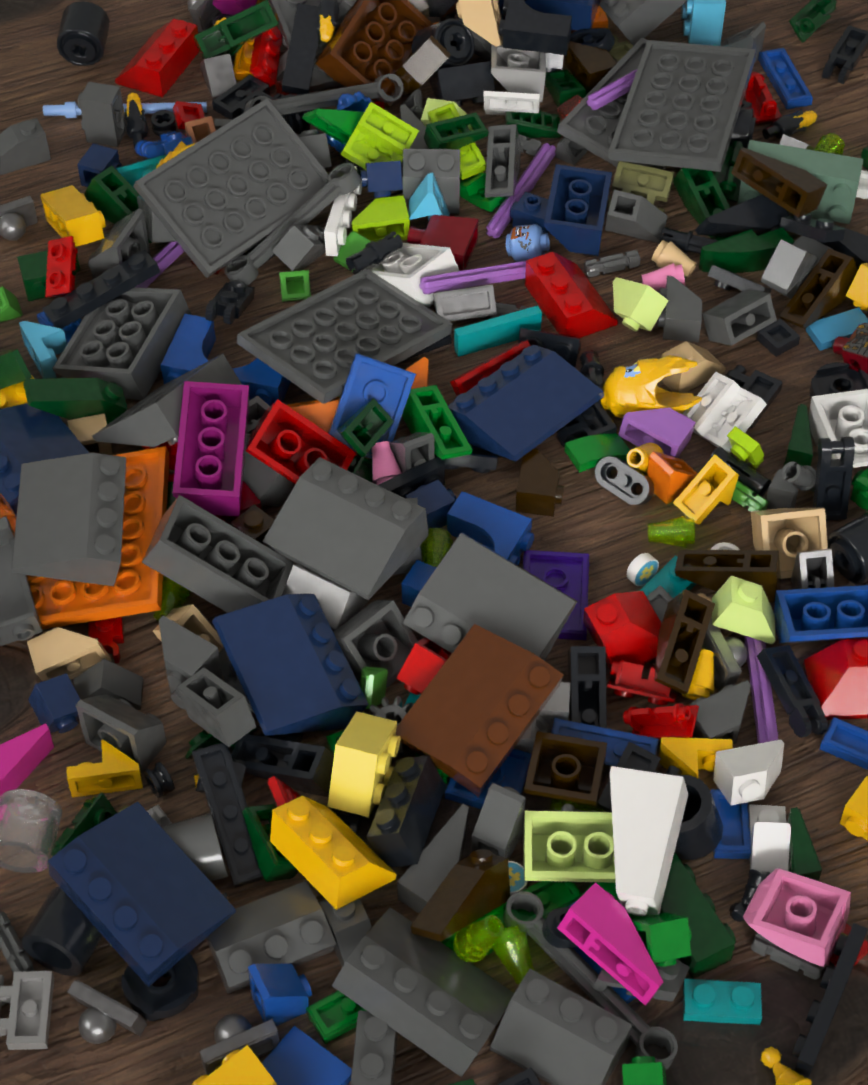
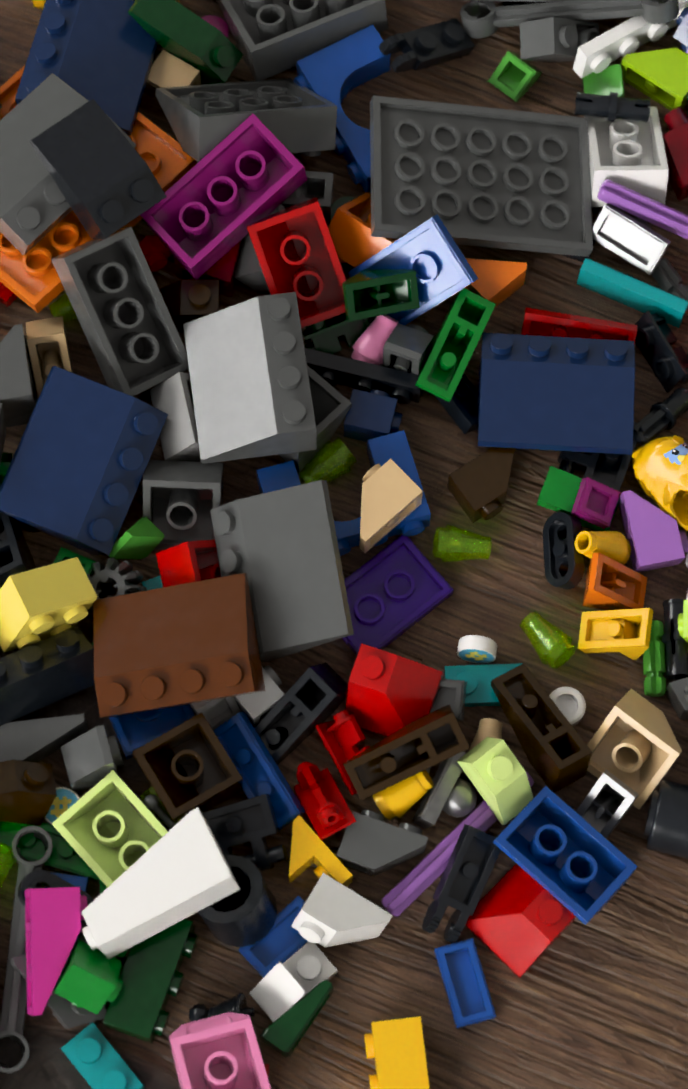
camera: 45 degrees right, 20 degrees up
(125, 480) = (97, 170): none -> black slope
(501, 526) = (385, 502): none -> tan slope
(562, 528) = (459, 544): none -> clear neon green cone
(612, 440) = (595, 502): none -> magenta tile

